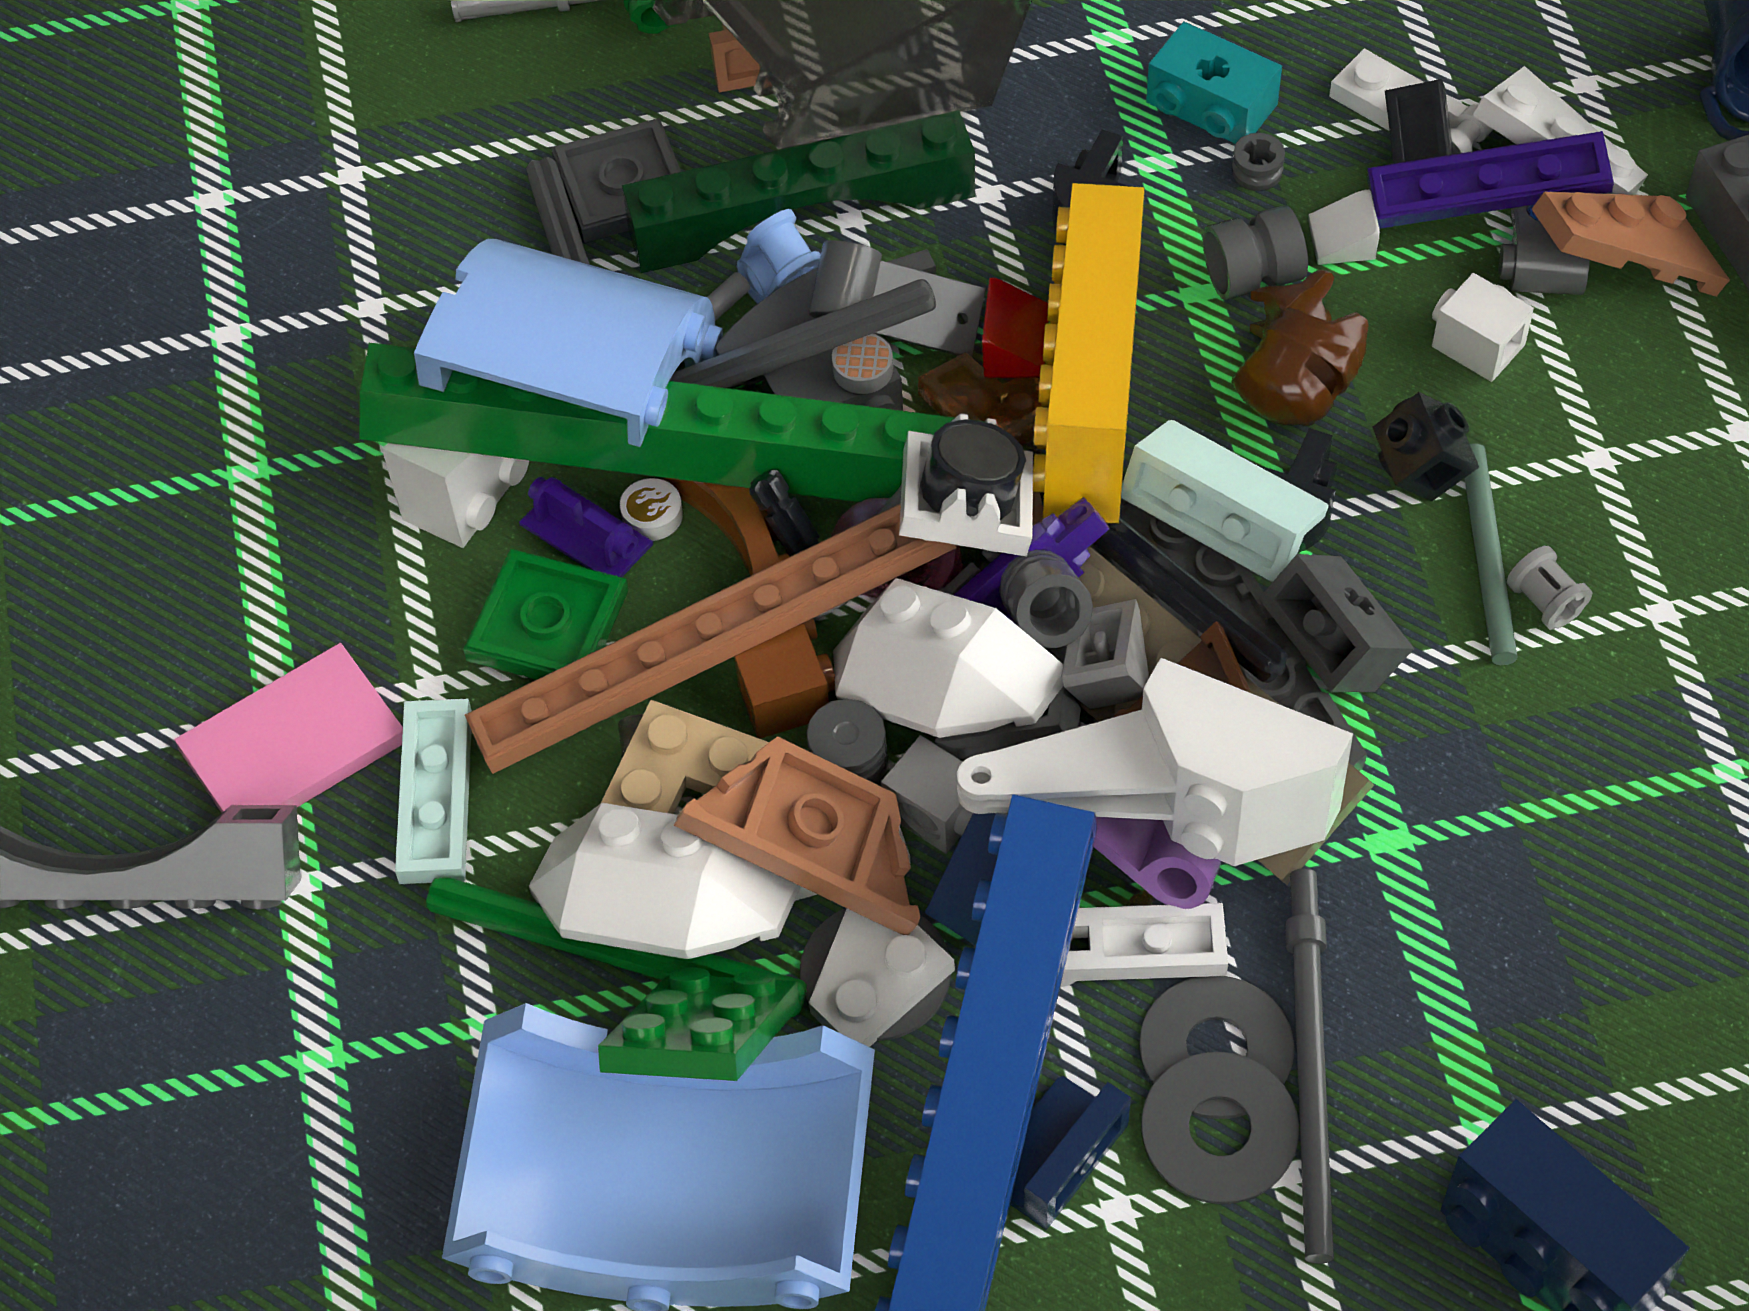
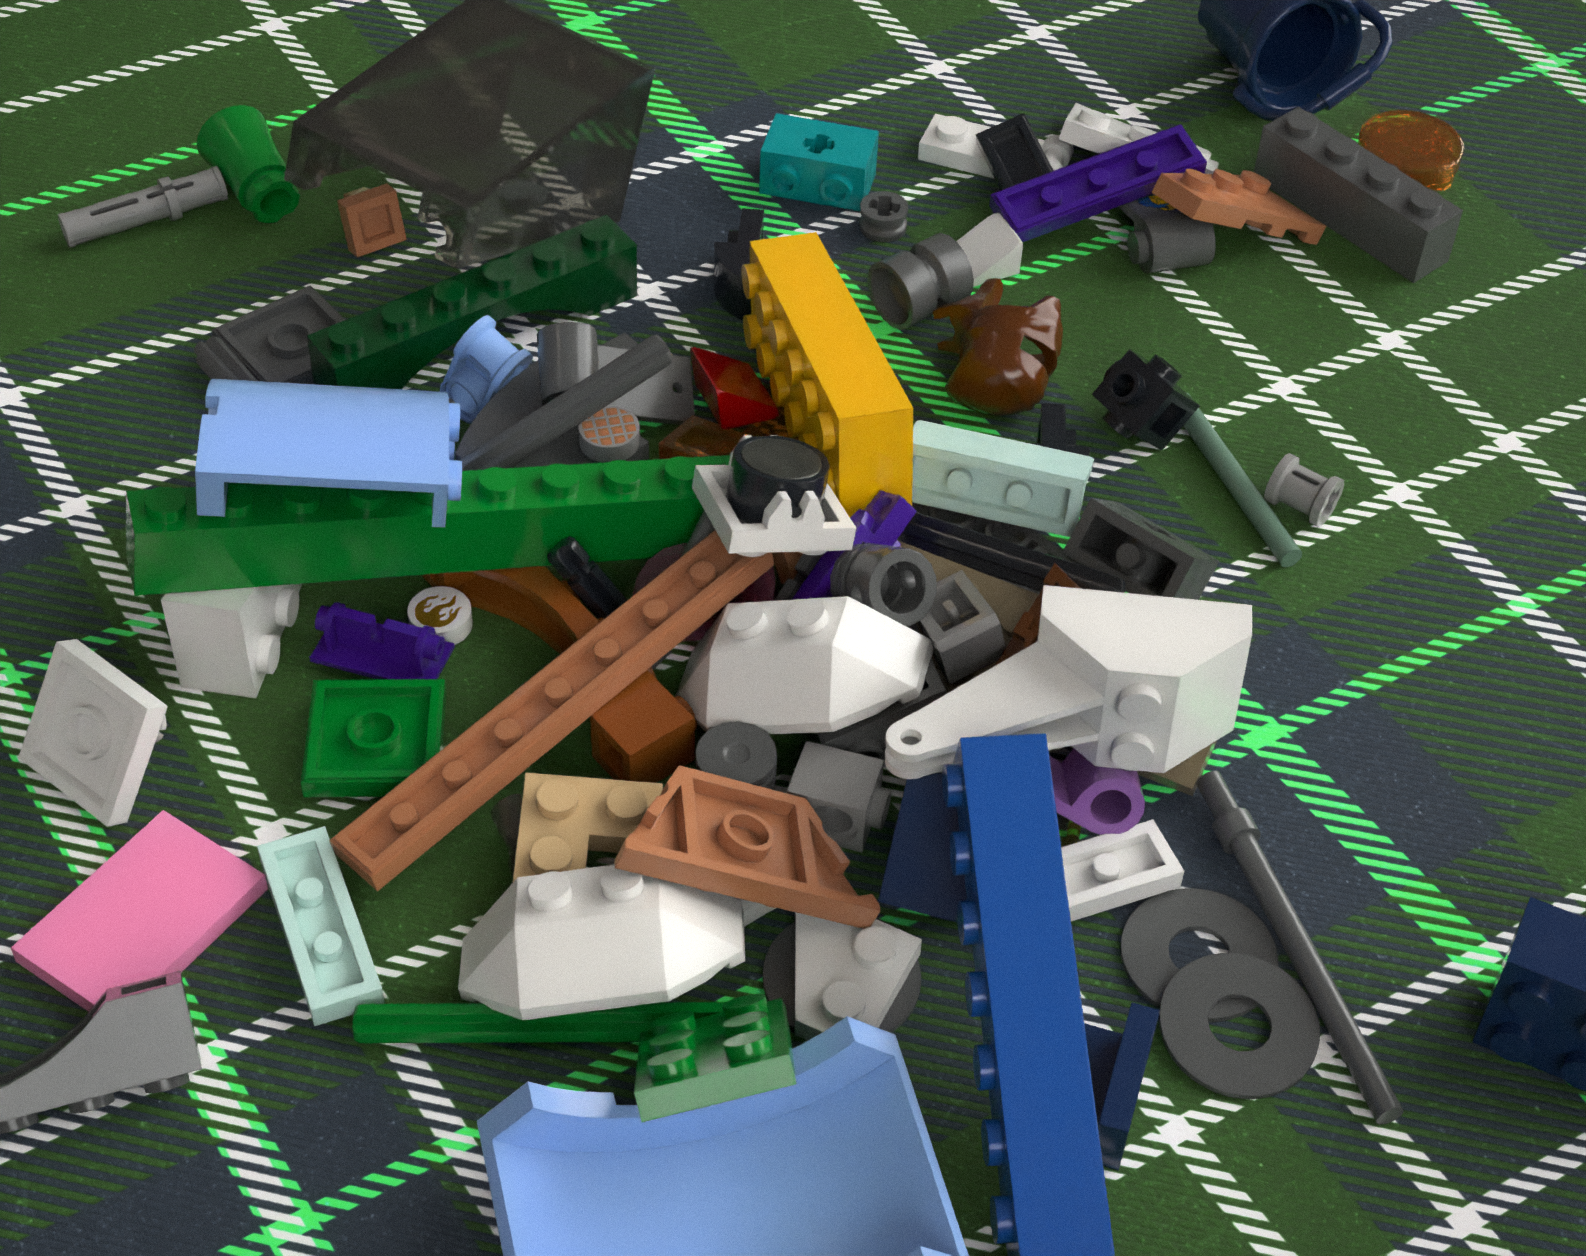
camera: 25 degrees left, 10 degrees down
(301, 554) = (92, 732): none -> white tile
(1481, 326) = (1141, 300): white brick -> none

